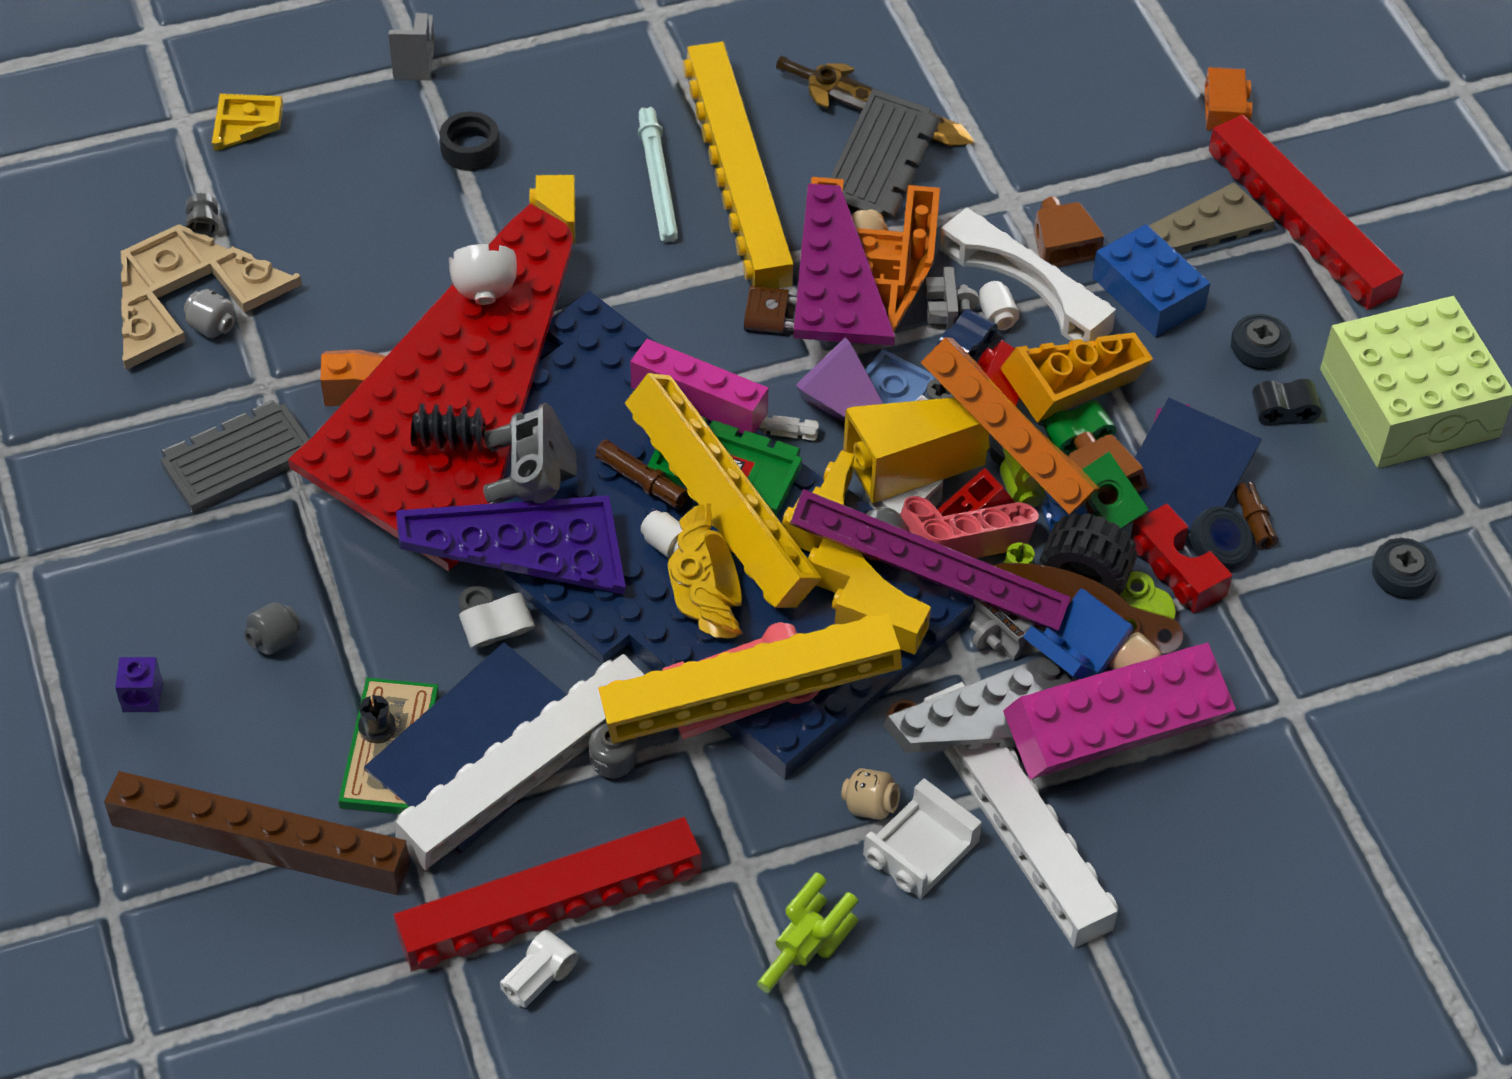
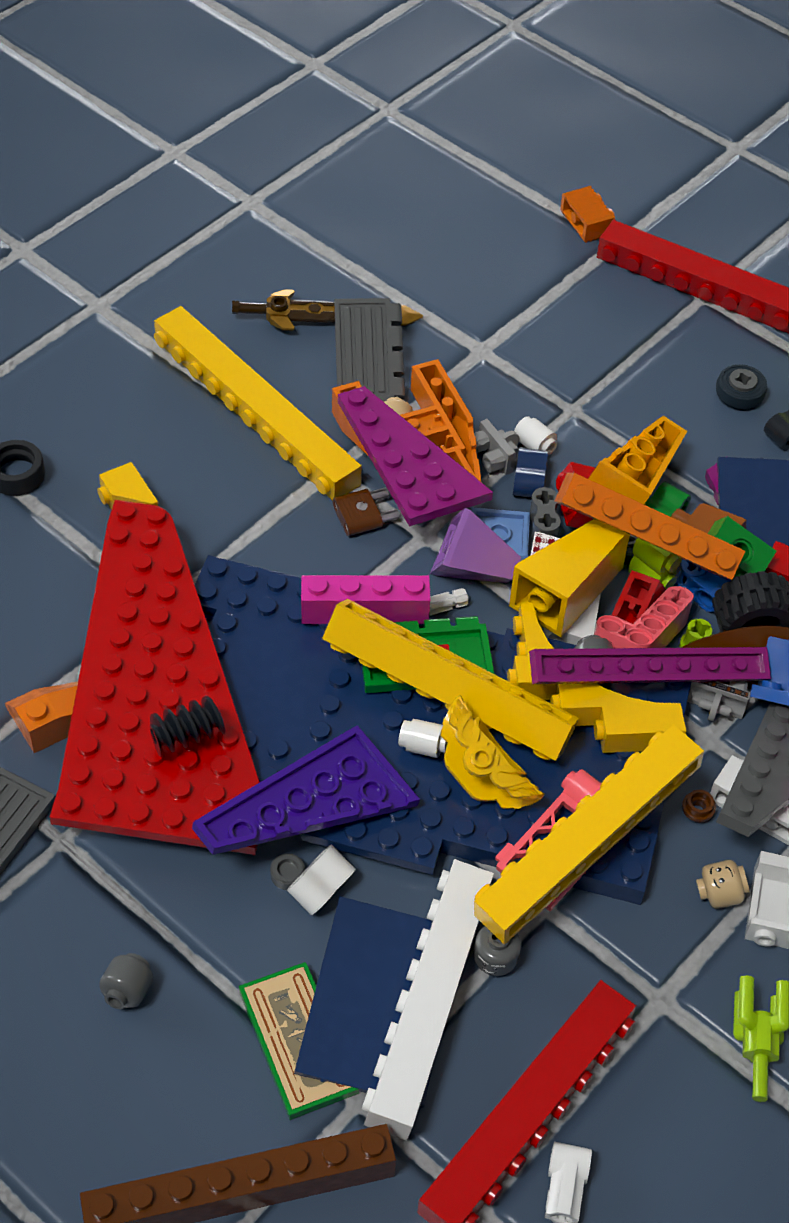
camera: 30 degrees left, 0 degrees up
(139, 684) = (36, 1095): dark purple brick -> none
(368, 724) = (279, 1032): black bush -> none
(483, 272) = (126, 576): white cylinder -> none
(539, 457) = (283, 717): dark grey piece -> none
(650, 134) = (166, 404): light aqua axle -> none
(653, 481) = (366, 694): reddish brown pin -> none
(980, 244) = (595, 416): white arch -> none
(1066, 233) = (545, 360): dark orange torso -> none
(1151, 280) = (633, 371): blue brick -> none
(1213, 218) = (636, 312): dark tan wing -> none

